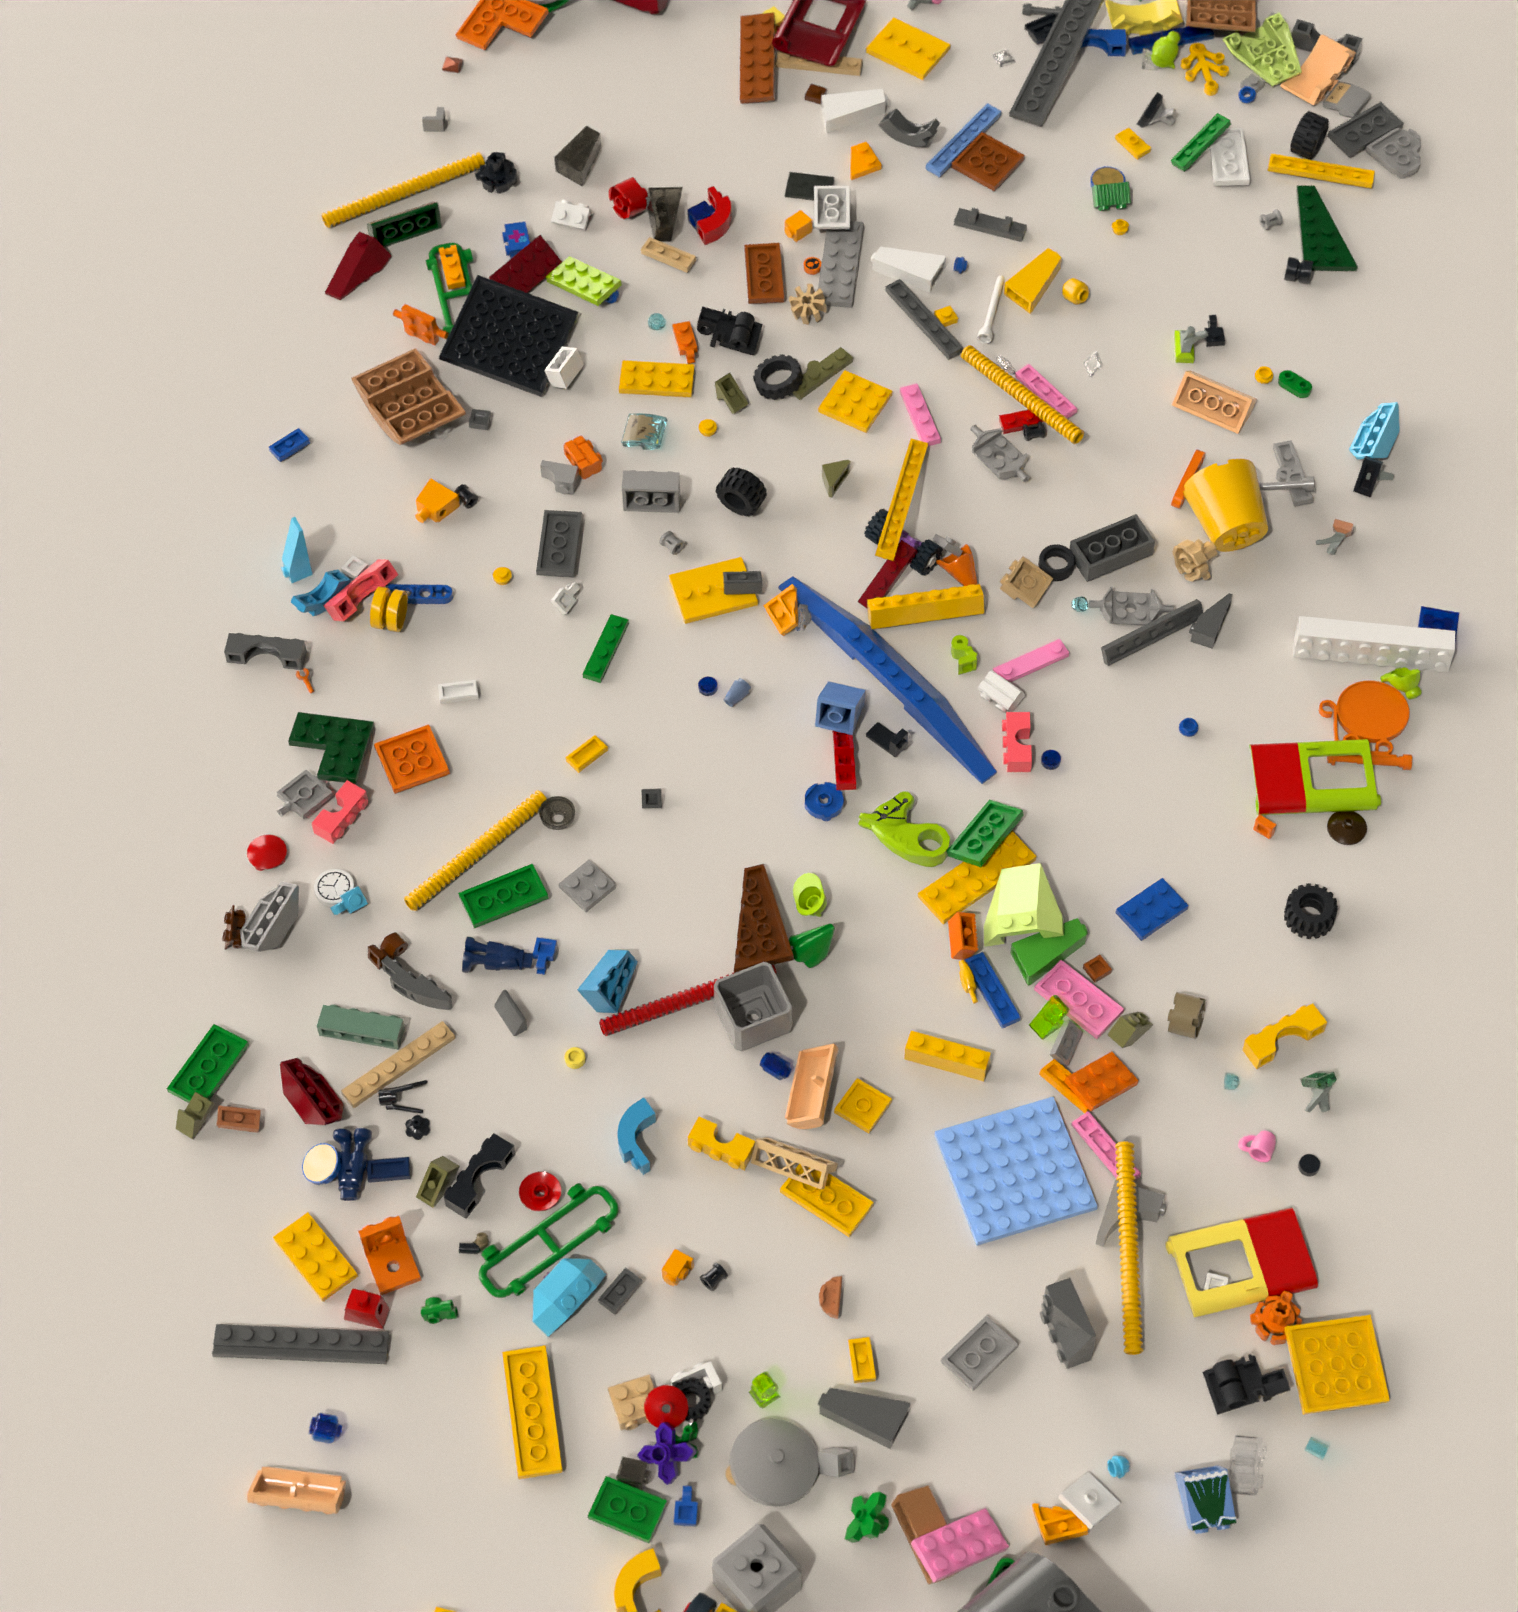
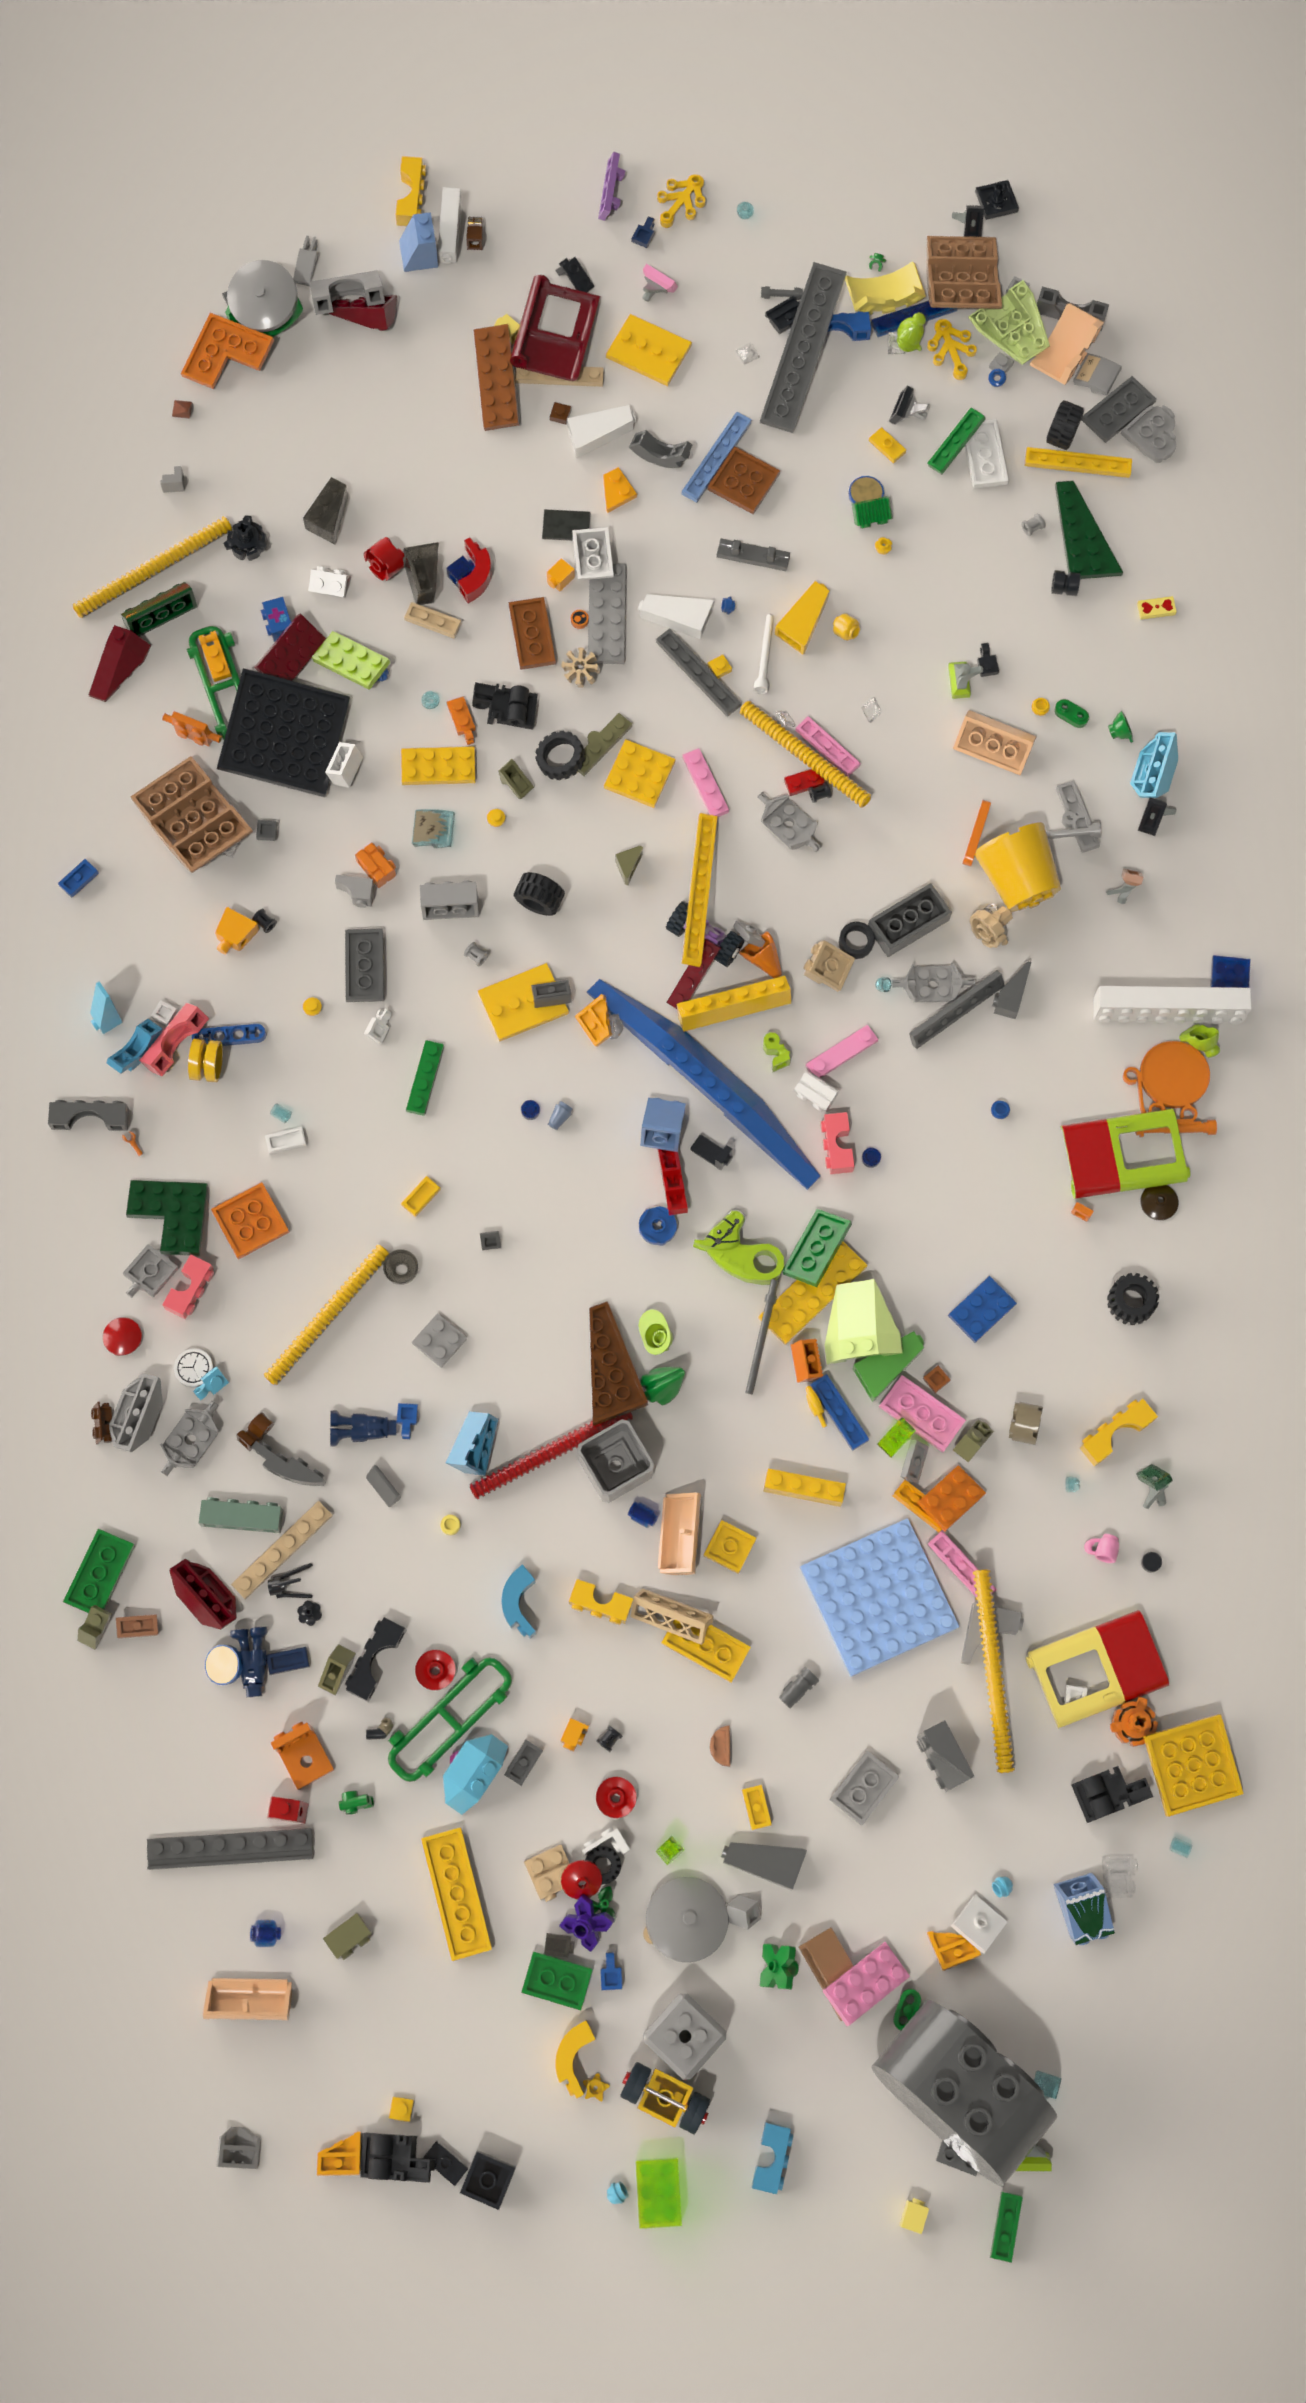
camera: 10 degrees left, 15 degrees up
(315, 1256) = (230, 1758): yellow plate -> none
(327, 937) = (192, 1423): none -> light grey plate
(411, 1441) = (348, 1936): none -> olive brick
(456, 666) = (280, 1113): none -> clear light blue hinge
(503, 895) = (359, 1360): green plate -> none
(709, 1325) = (614, 1786): none -> red dish
(919, 1248) = (796, 1690): none -> dark grey axle
(931, 877) = (770, 1299): none -> dark grey bar
(1343, 399) = (1120, 728): none -> green piece
(1389, 300) = (1156, 608): none -> light yellow tile

